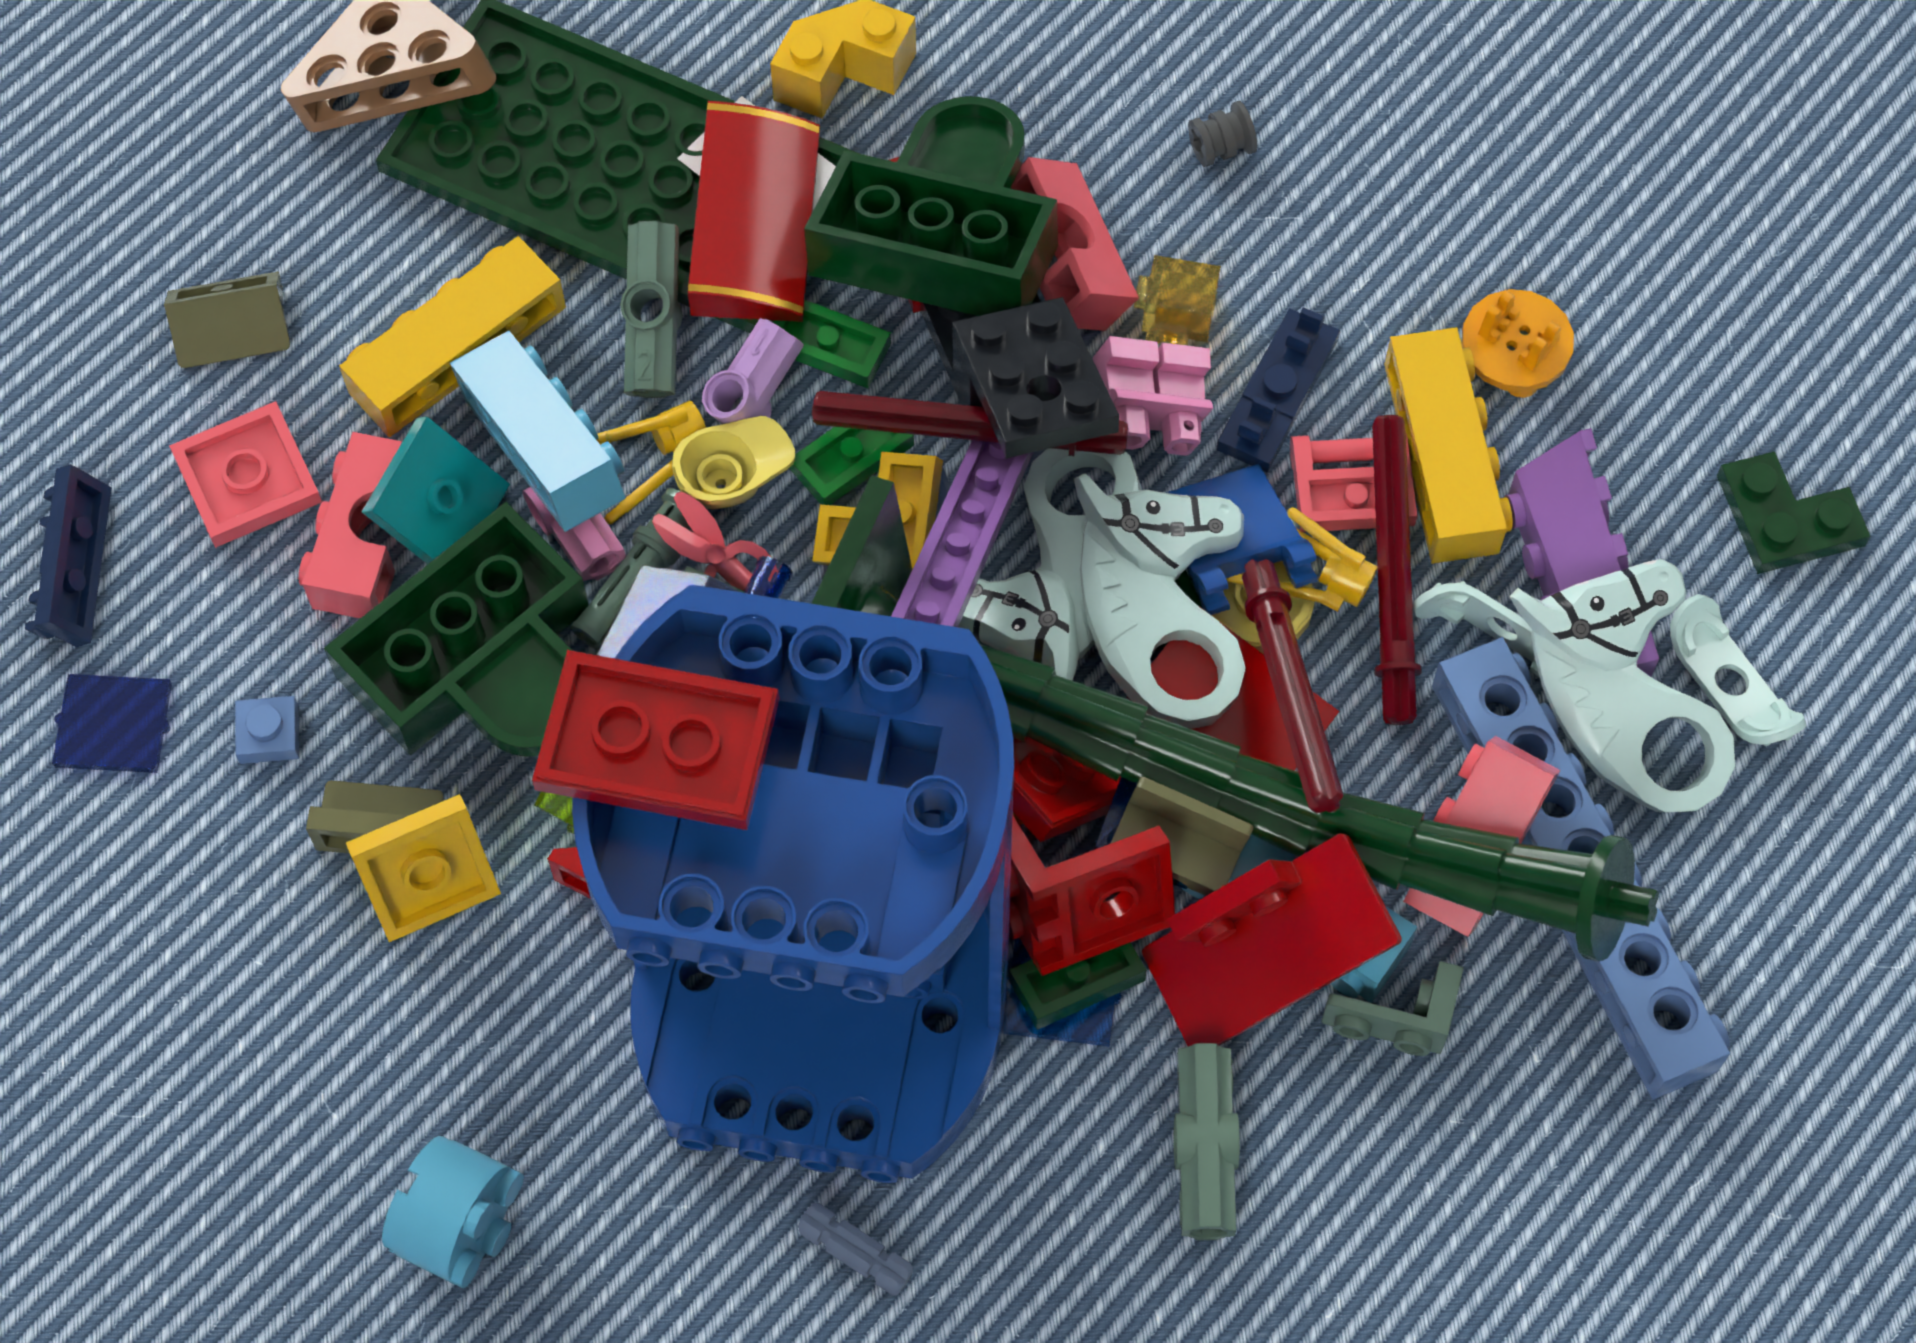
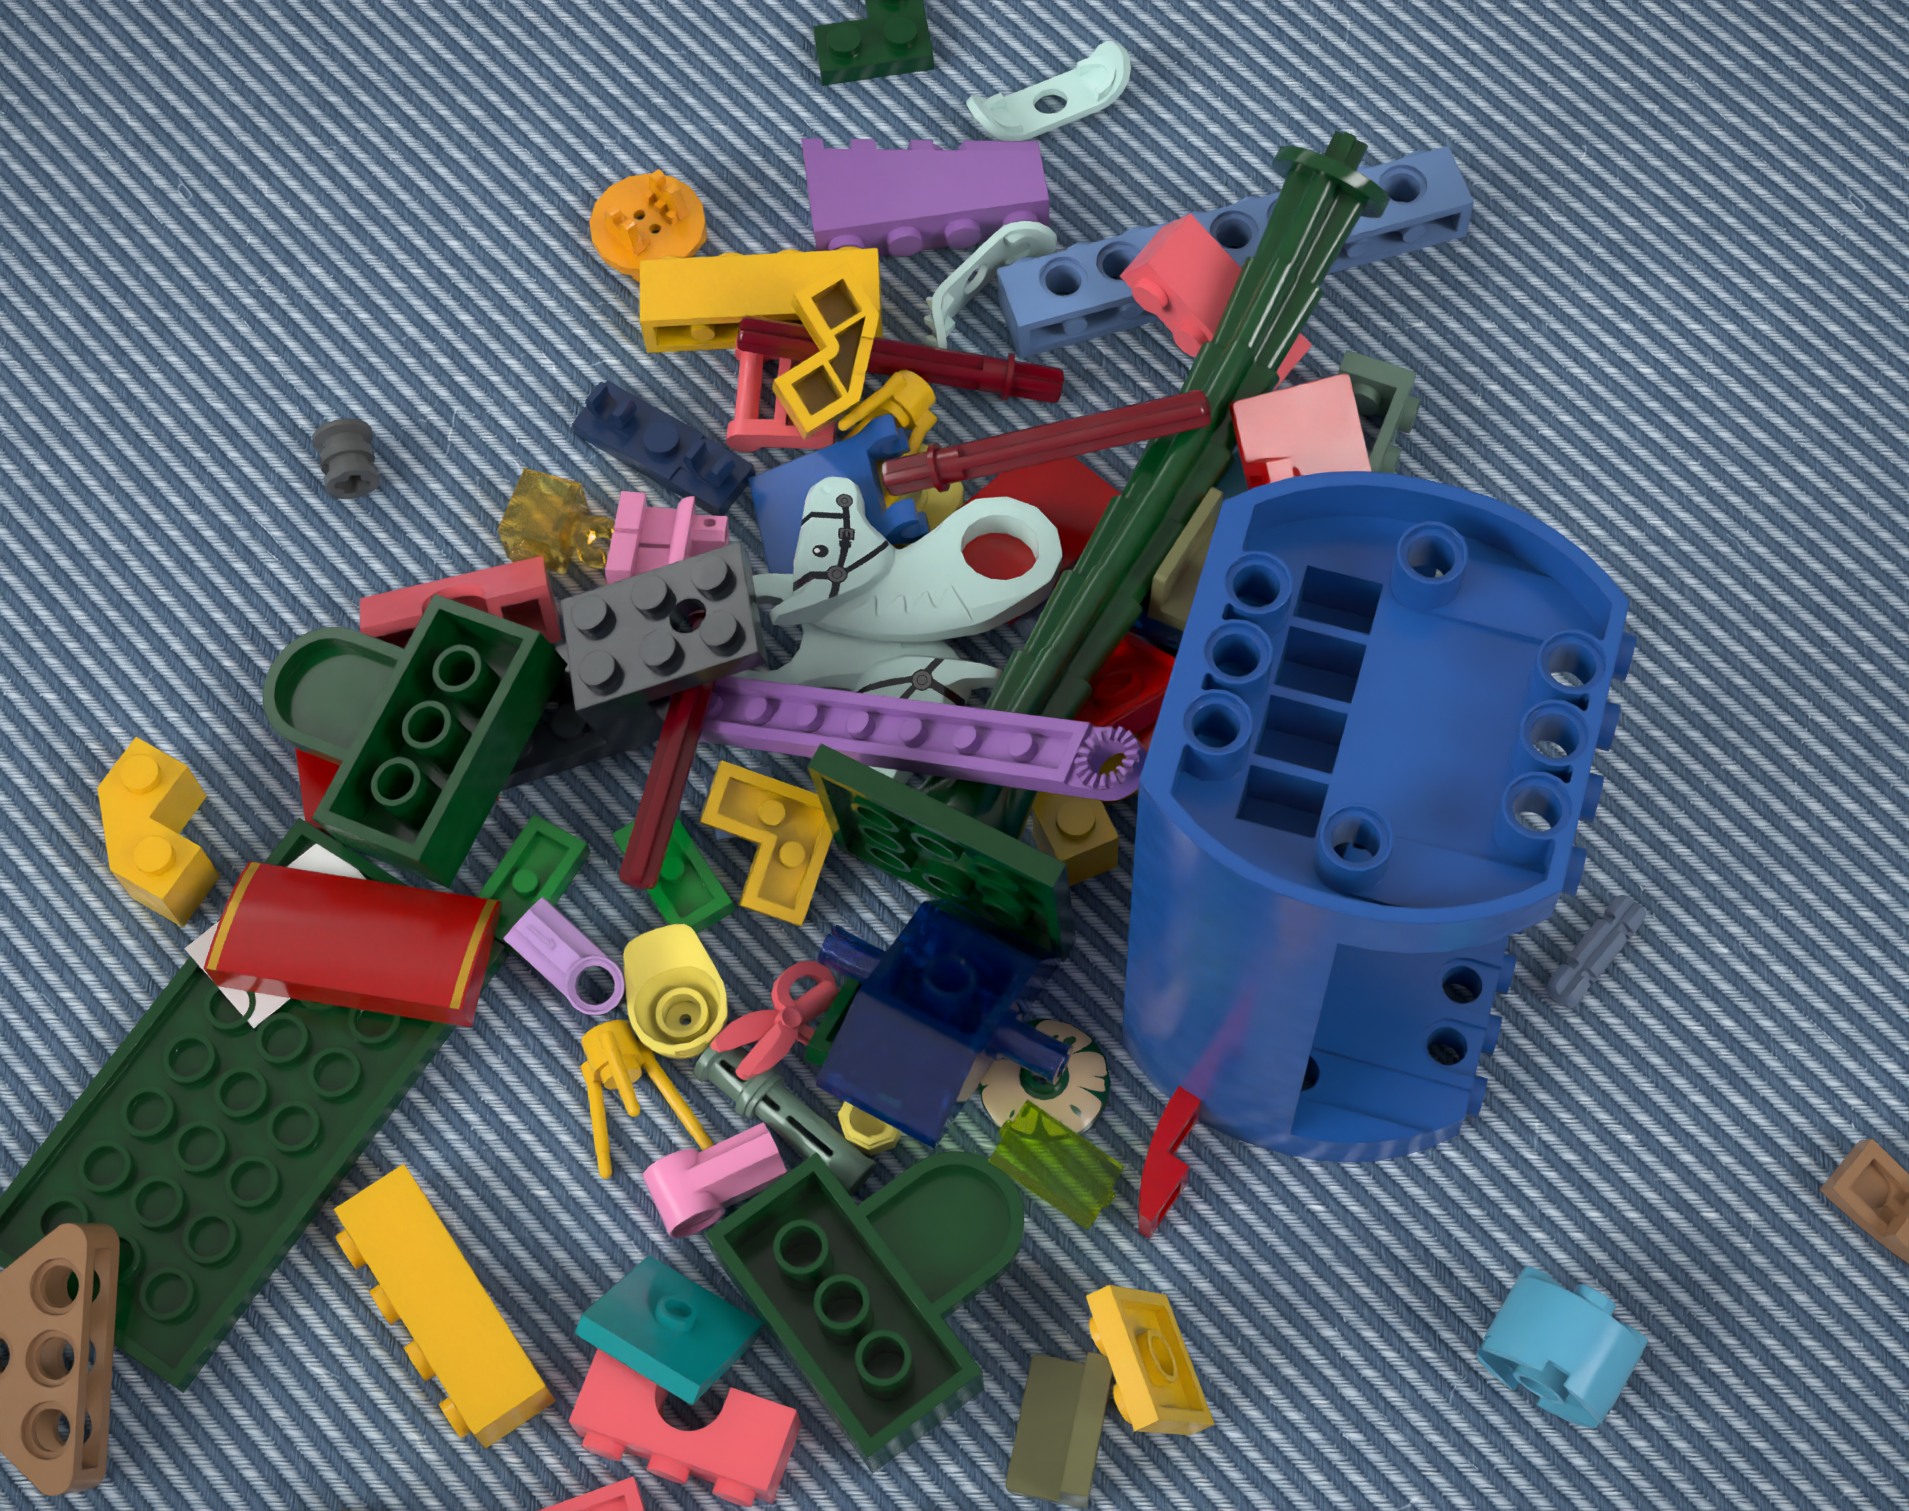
camera: 80 degrees left, 0 degrees up
(539, 430) = (604, 1198): brick -> none
(651, 275) = (506, 1070): sand green piece -> none
(656, 739) = (1341, 823): red tile -> none
(1383, 494) = (843, 328): none -> yellow brick
(1606, 705) = (1074, 191): light aqua animal -> none

